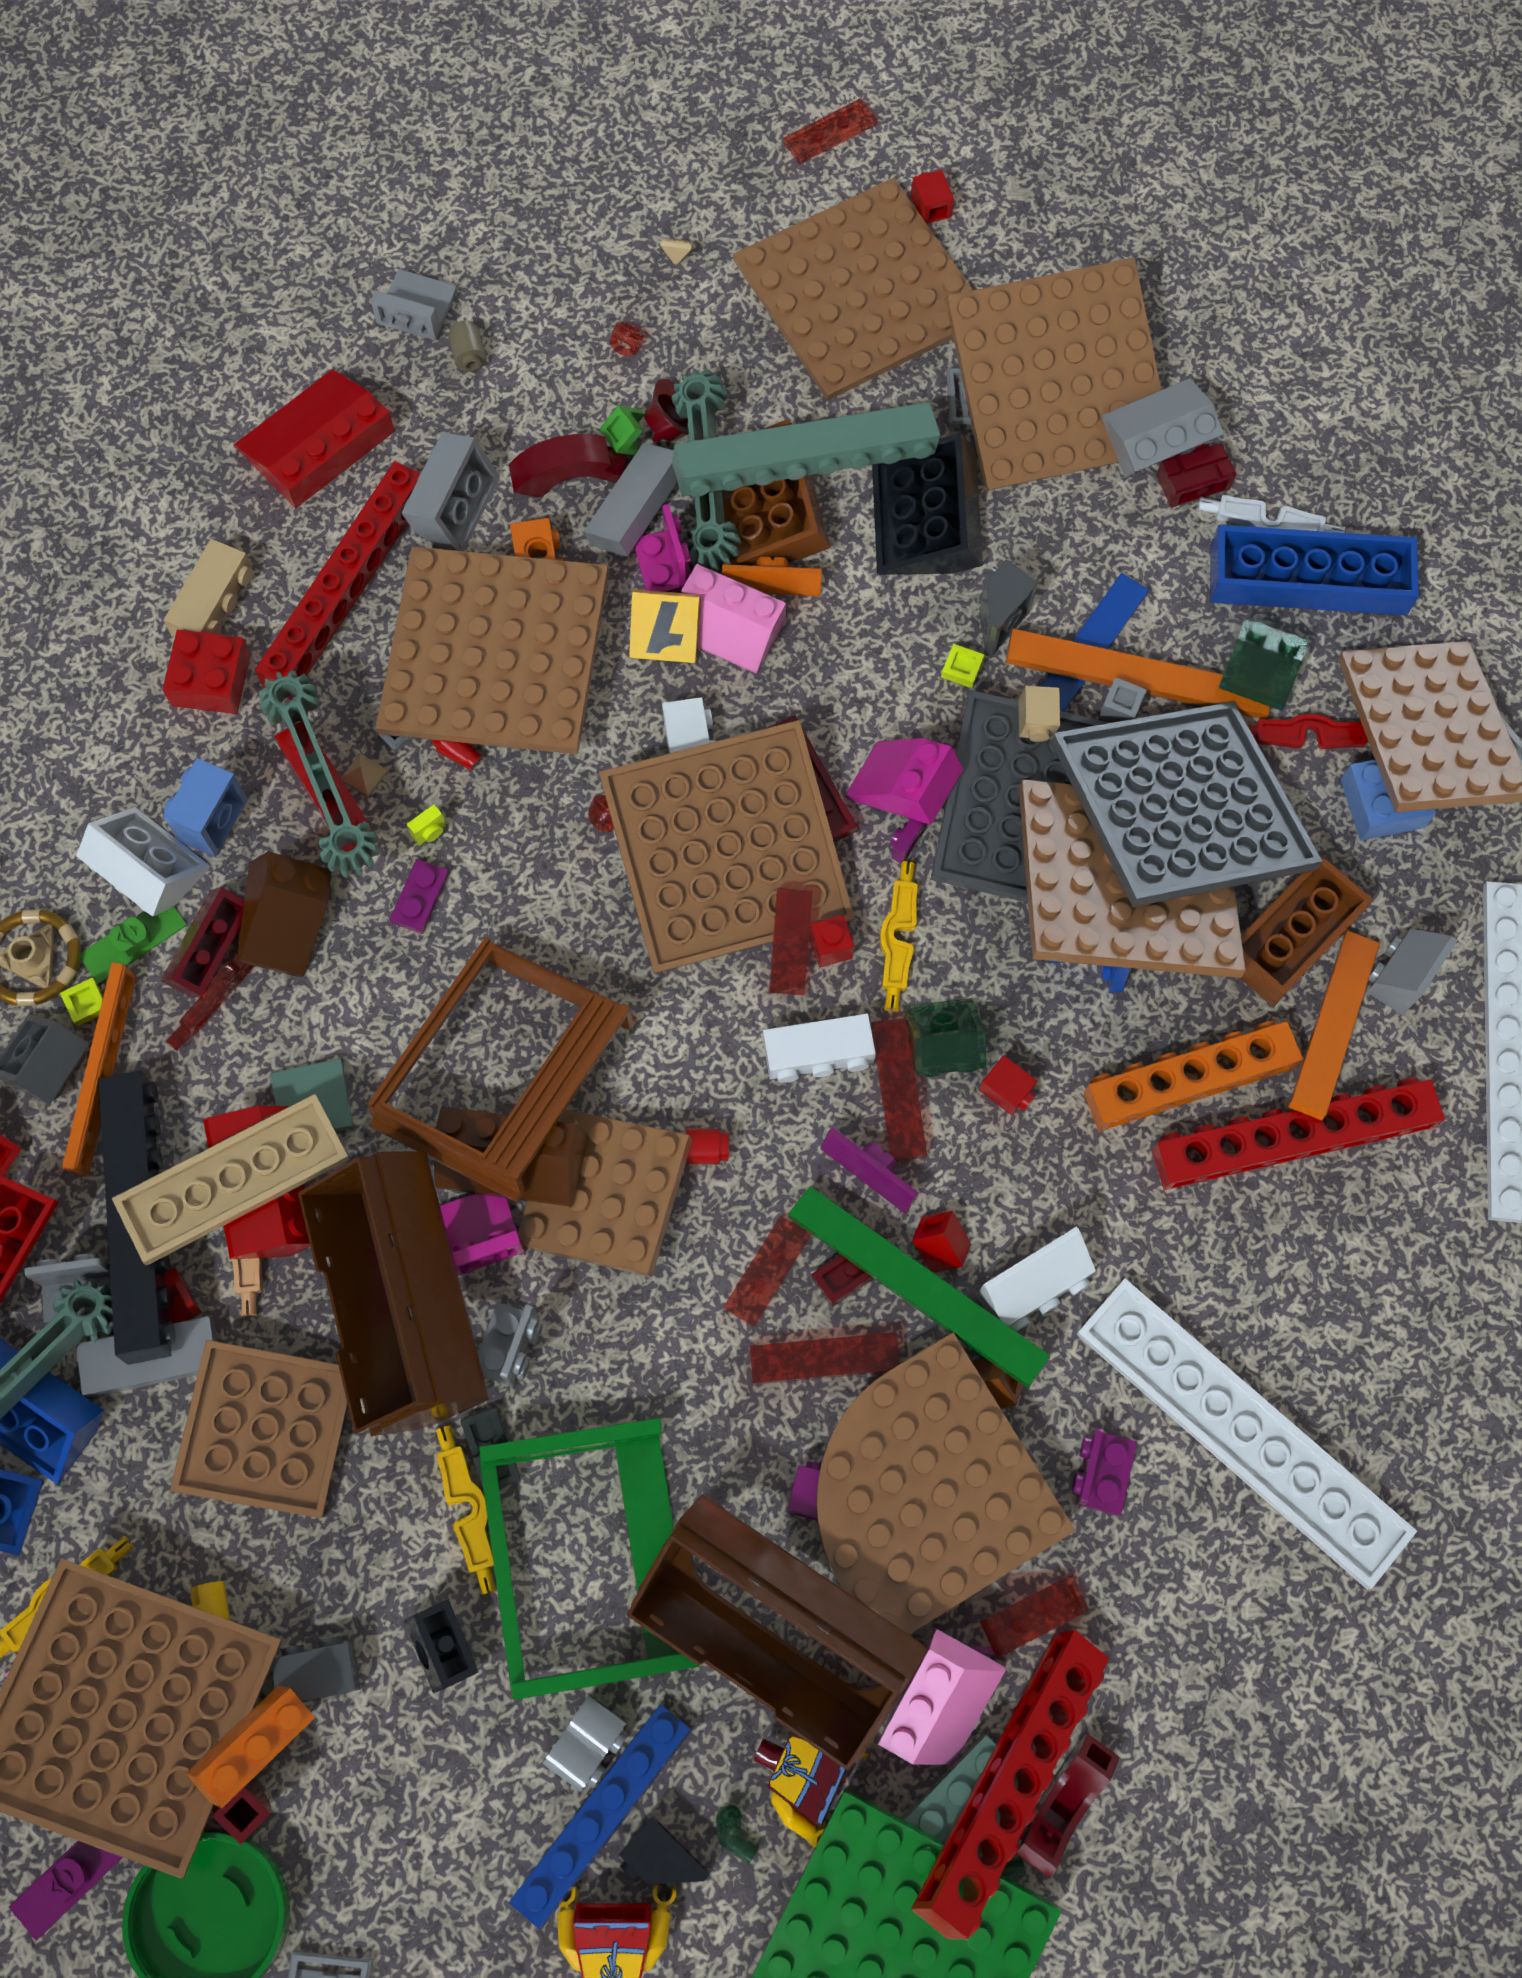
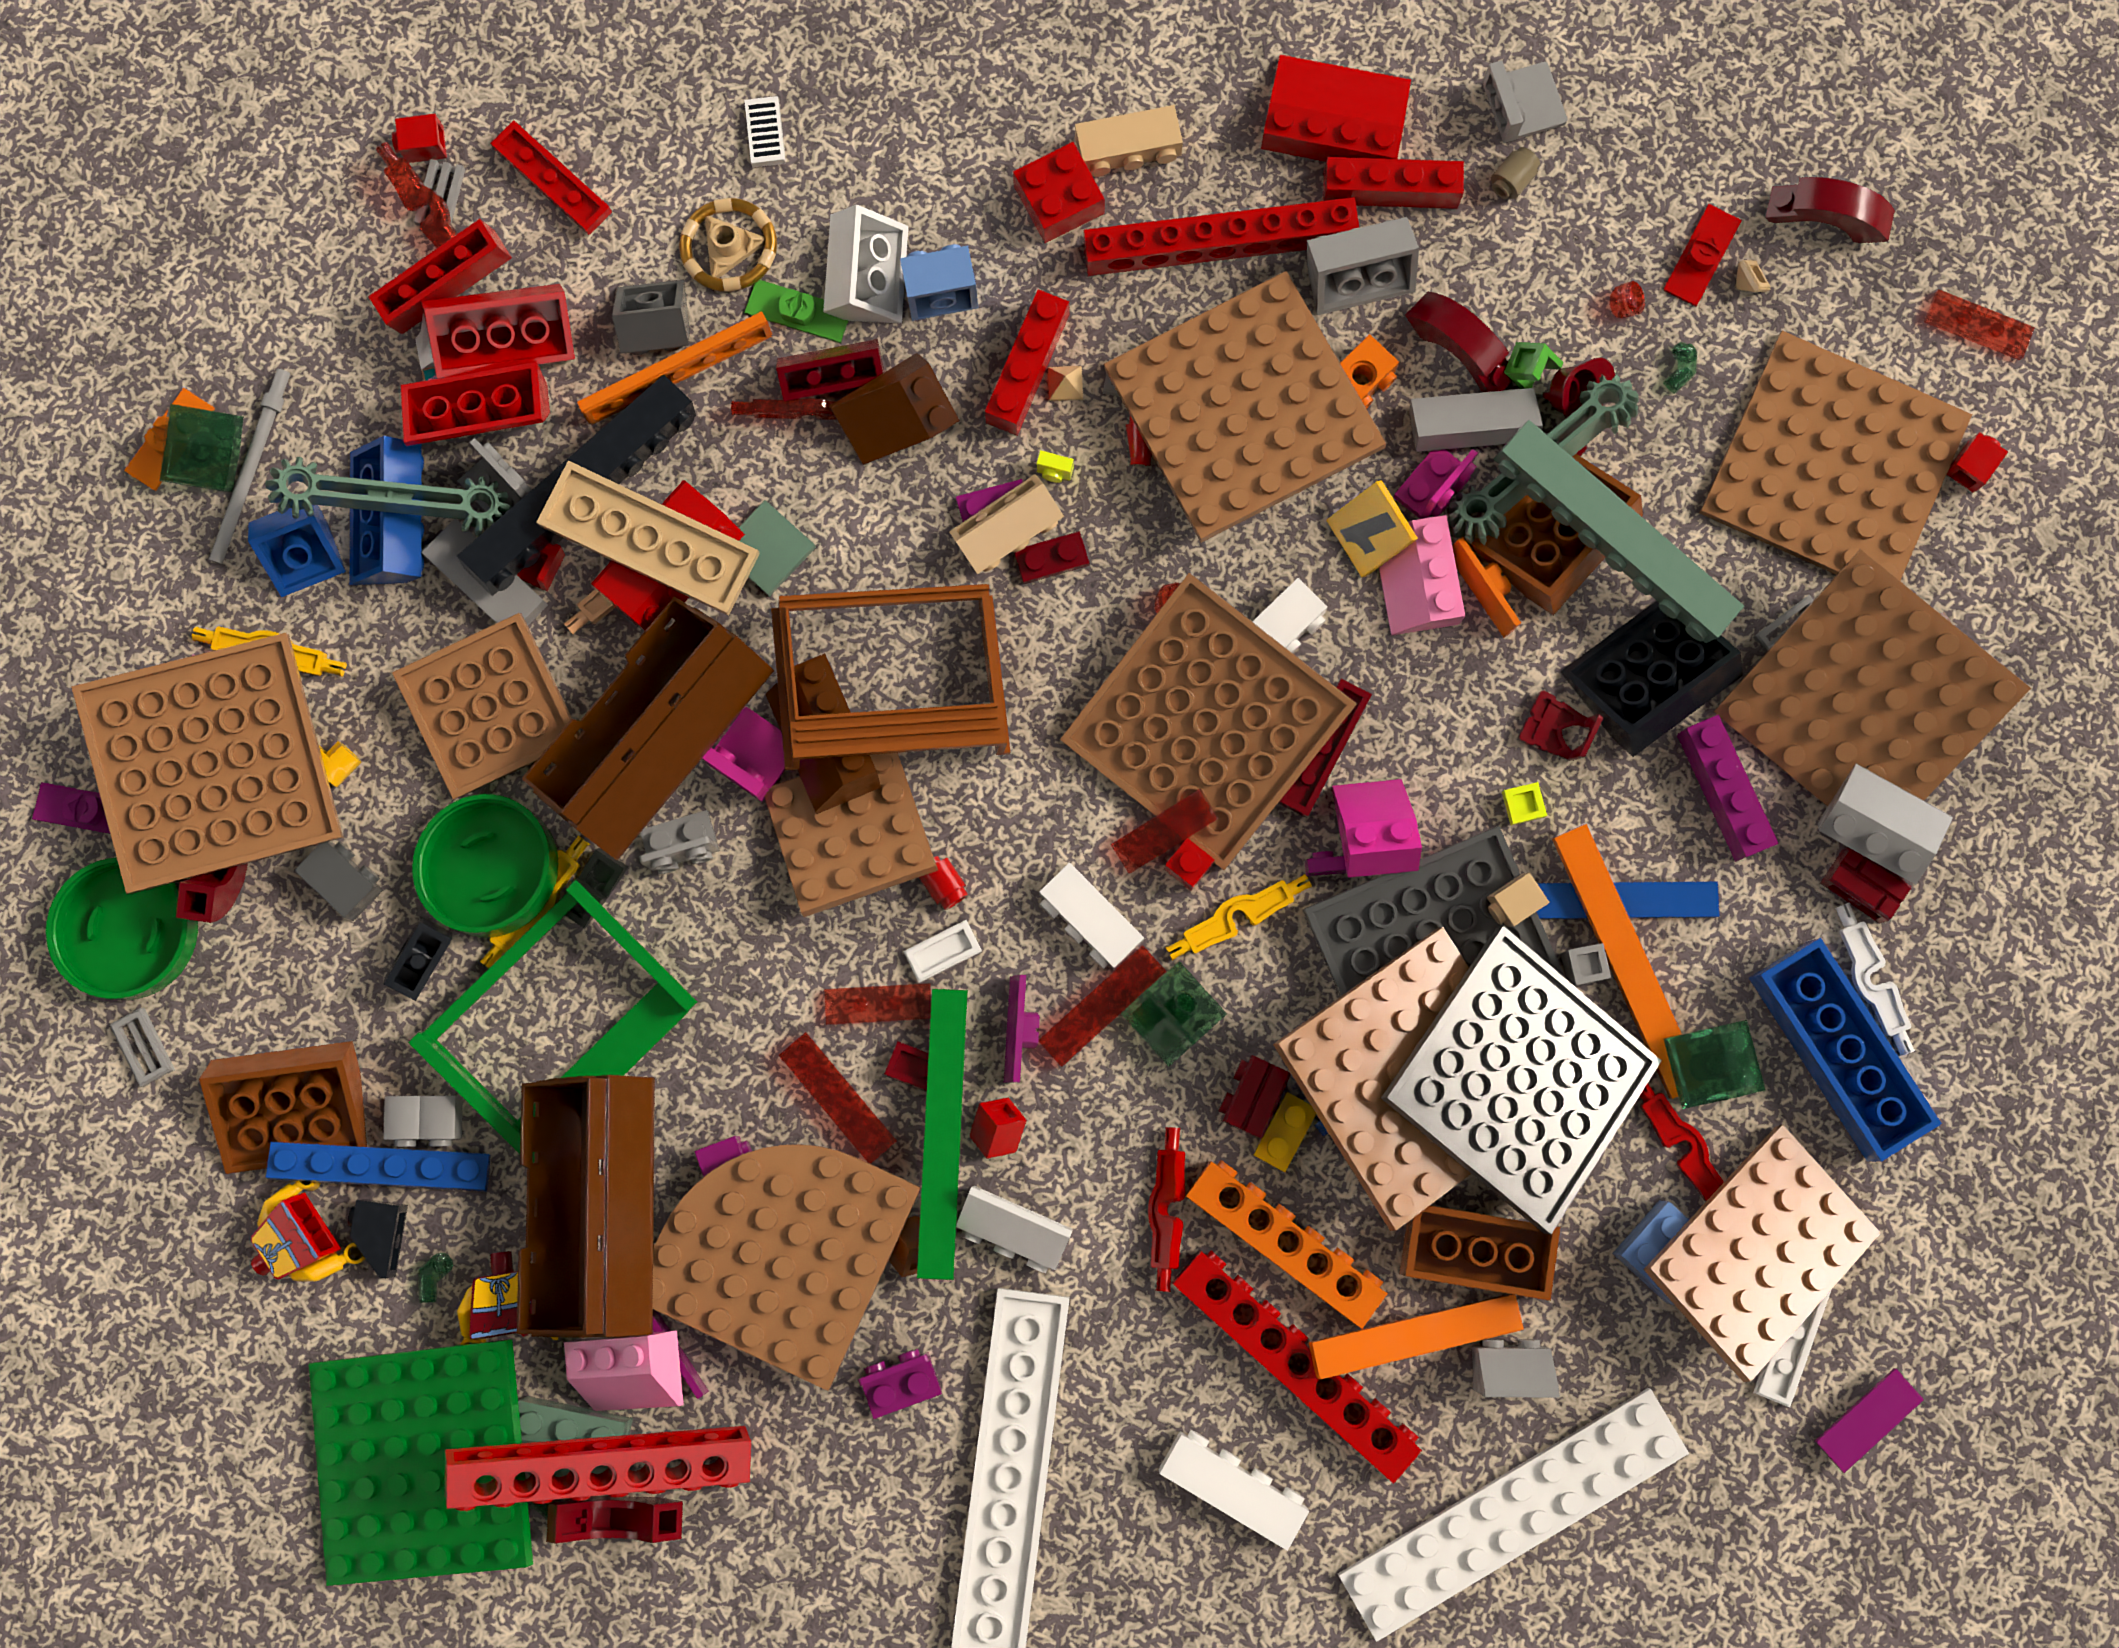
camera: 60 degrees right, 10 degrees up
(83, 1001) = (720, 313): neon yellow plate -> none
(250, 1746) = (246, 872): orange brick -> none
(318, 773) = (1026, 349): sand green arm -> none
(402, 1528) = (485, 865): none -> green piece
(404, 429) = (1394, 182): none -> red brick
(446, 891) = (1007, 524): none -> tan brick
(475, 1866) = (284, 1098): none -> dark orange slope
(498, 881) = (1052, 557): none -> dark red plate
(632, 269) = (1702, 255): none -> red piece
(666, 153) = (1846, 205): none -> dark red arch
(709, 333) = (1686, 366): none -> clear green arm
(760, 1188) = (942, 951): none -> white tile
(909, 604) = (1549, 720): none -> dark red piece
(1004, 604) = (1605, 801): dark grey slope -> none
(1009, 1086) = (1167, 1096): red brick -> none
(1034, 1616) = (744, 1401): clear red tile -> none
(1055, 517) = (1727, 788): none -> magenta brick
(1055, 1019) = (1255, 1096): none -> dark red brick
(1100, 1017) = (1285, 1132): none -> yellow plate
(1119, 1161) = (1166, 1228): none -> red piece
(1369, 1252) = (1233, 1489): none -> white brick

